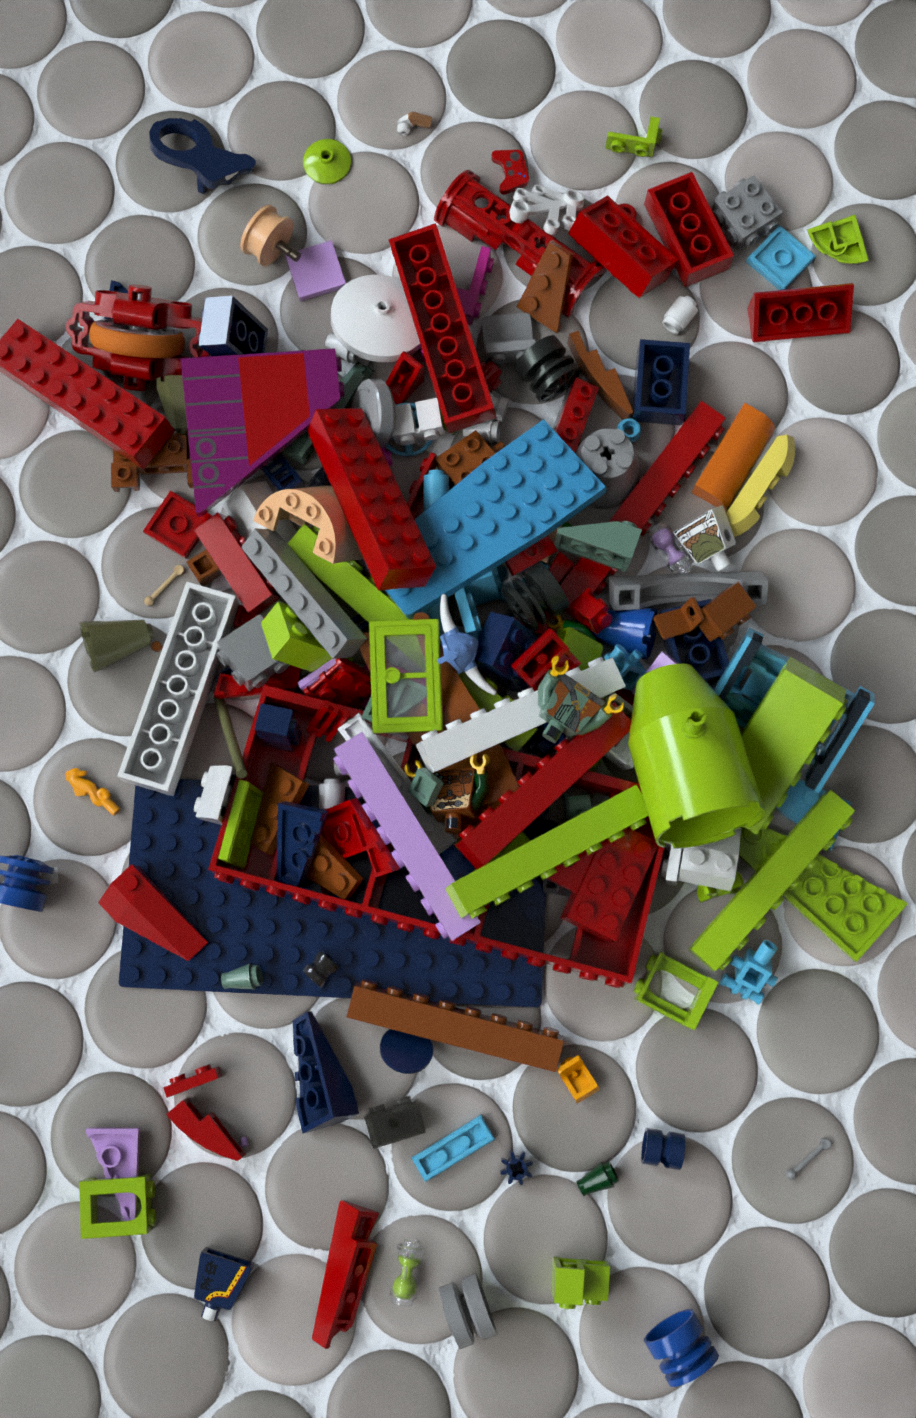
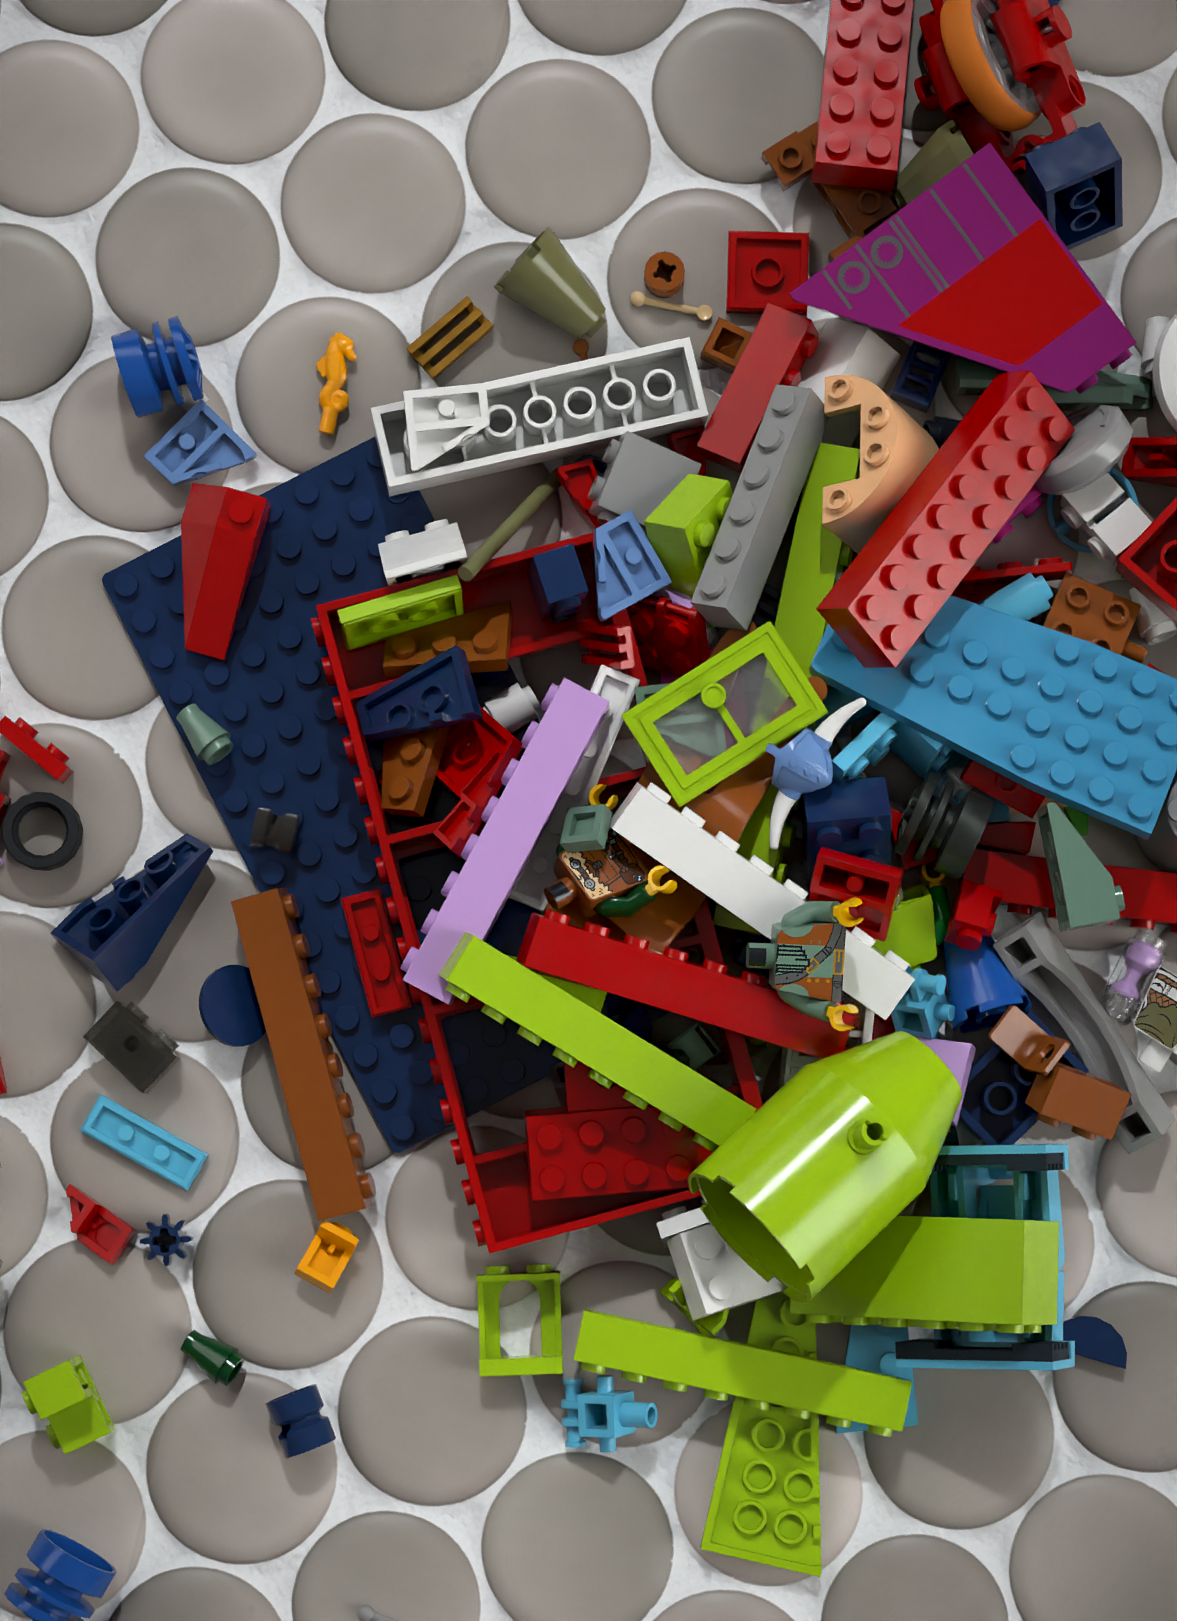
camera: 60 degrees right, 5 degrees up
(80, 887) = (198, 447): none -> medium blue wing
(97, 715) = (475, 315): none -> pearl gold tile
(148, 582) = (666, 283): none -> dark orange wheel
(148, 739) = (443, 419): none -> white wing
(221, 1108) = (14, 816): none -> black tyre
(290, 684) = (624, 565): none -> medium blue wing
(422, 951) = (376, 953): none -> red tile
(485, 1203) = (98, 1226): none -> red slope
(857, 677) = (1095, 1340): none -> dark blue tile

